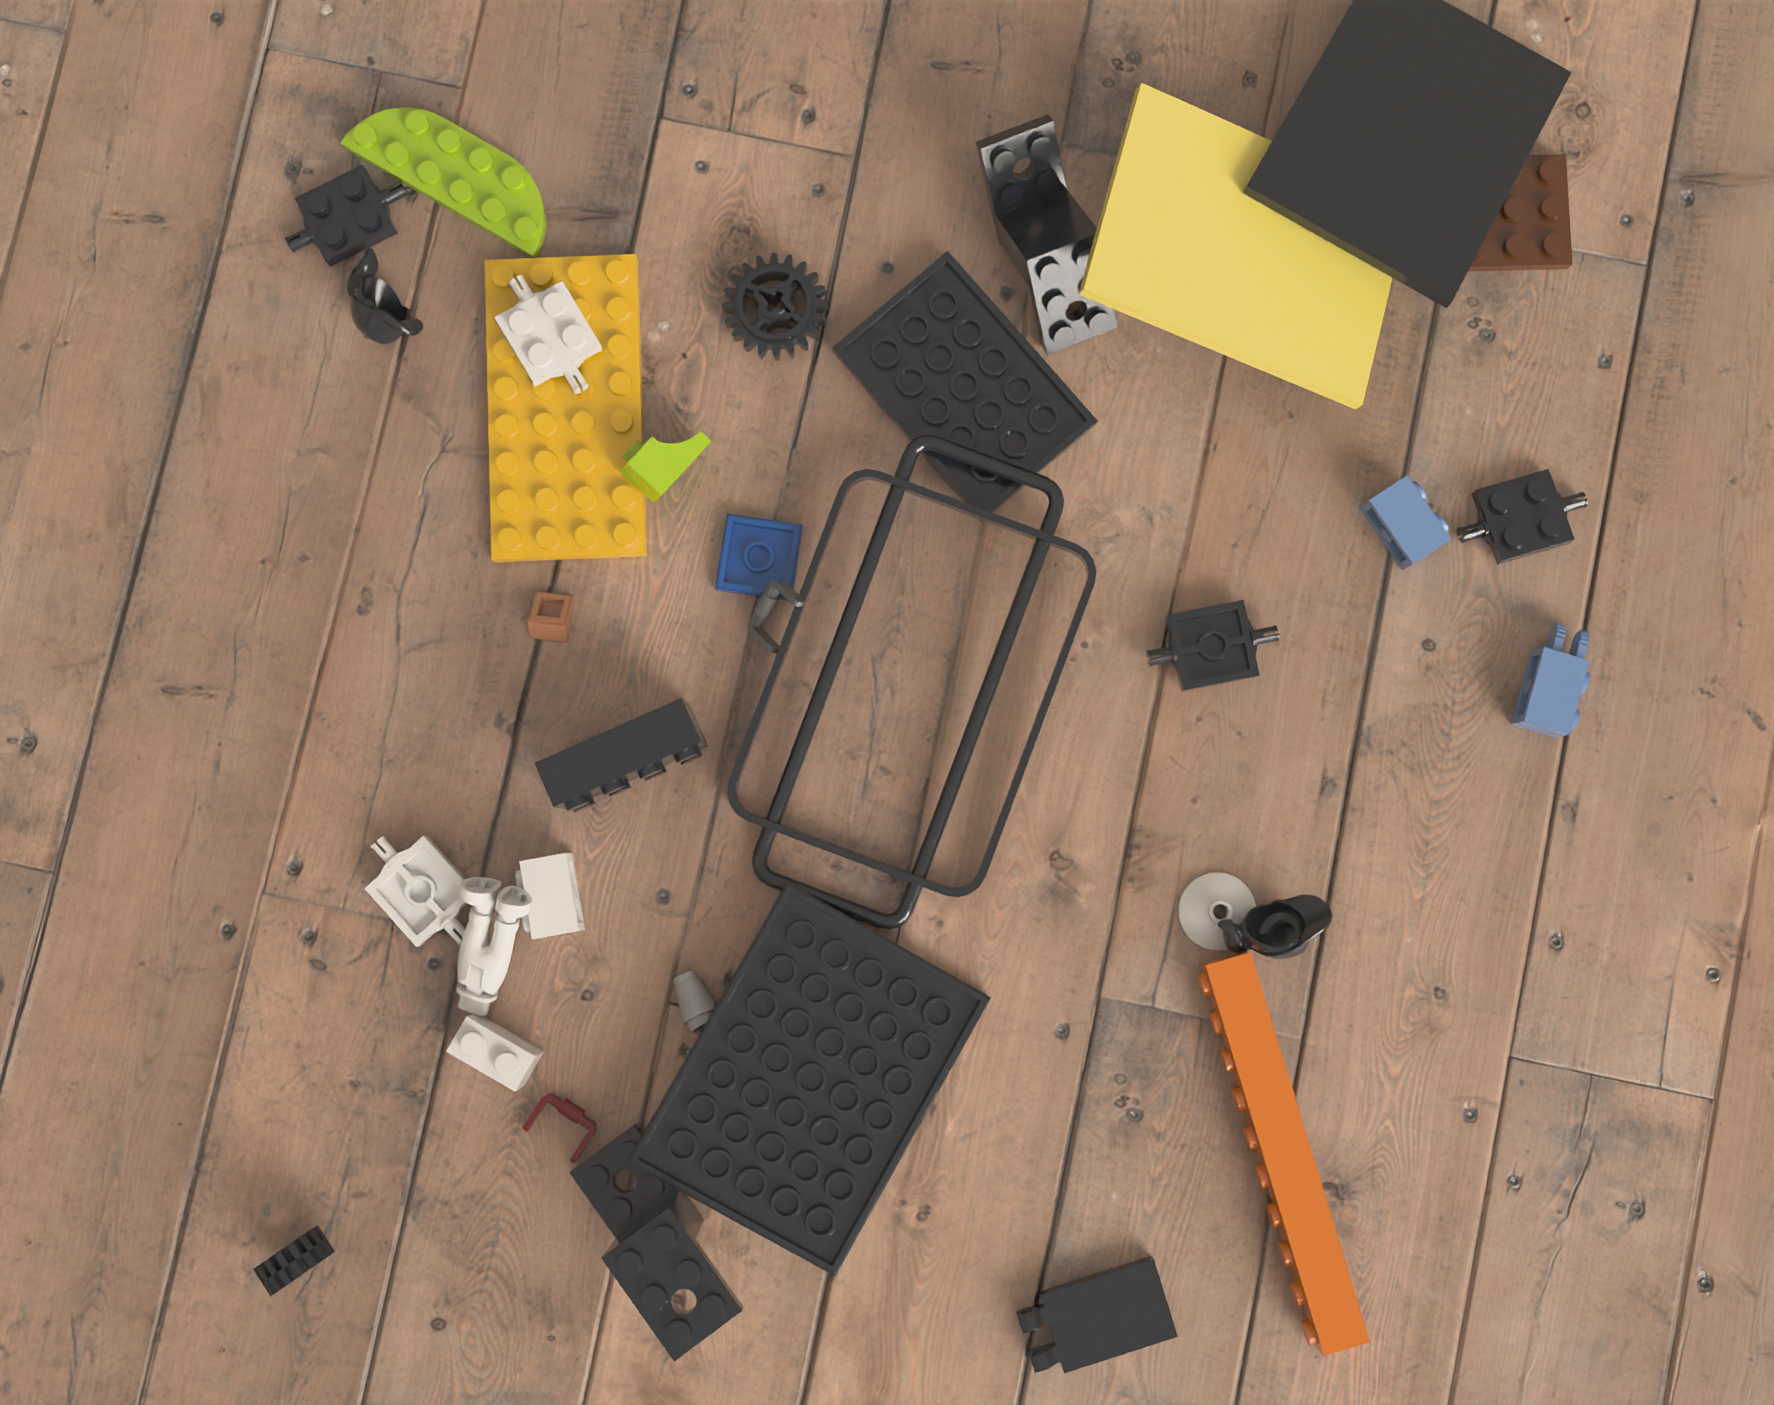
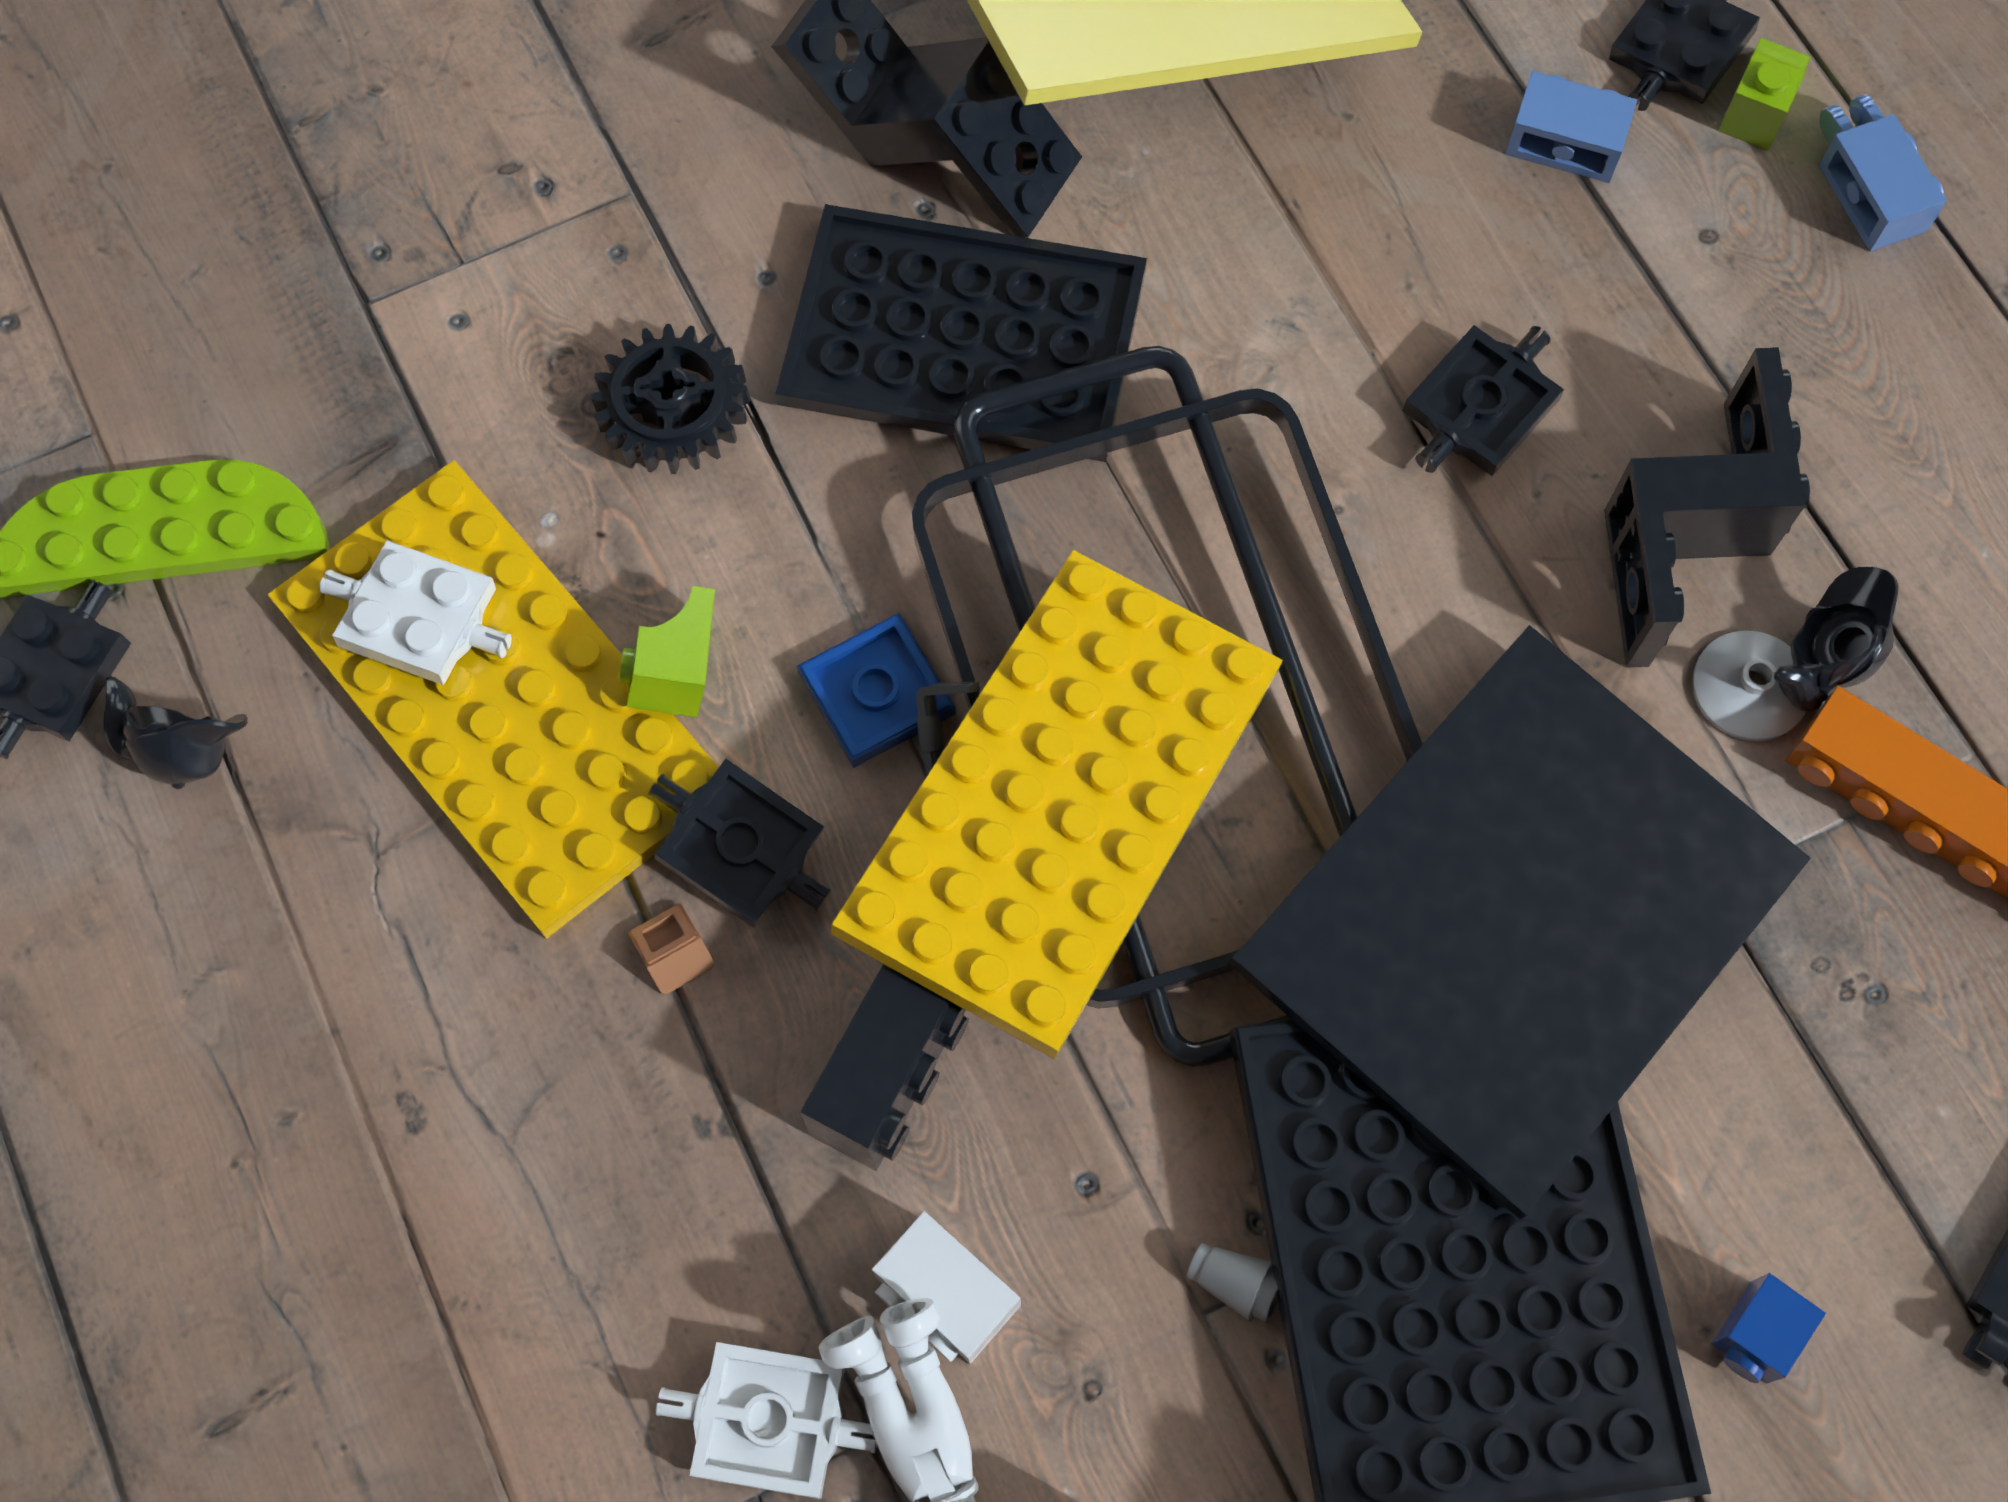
camera: 35 degrees left, 15 degrees down
(623, 589) = (739, 842): none -> black plate
(791, 700) = (1058, 803): none -> yellow plate
(926, 1227) = (1767, 1330): none -> blue brick
(985, 938) = (1521, 919): none -> black tile
(1272, 802) = (1705, 505): none -> black bracket
(1538, 586) = (1764, 94): none -> lime arch

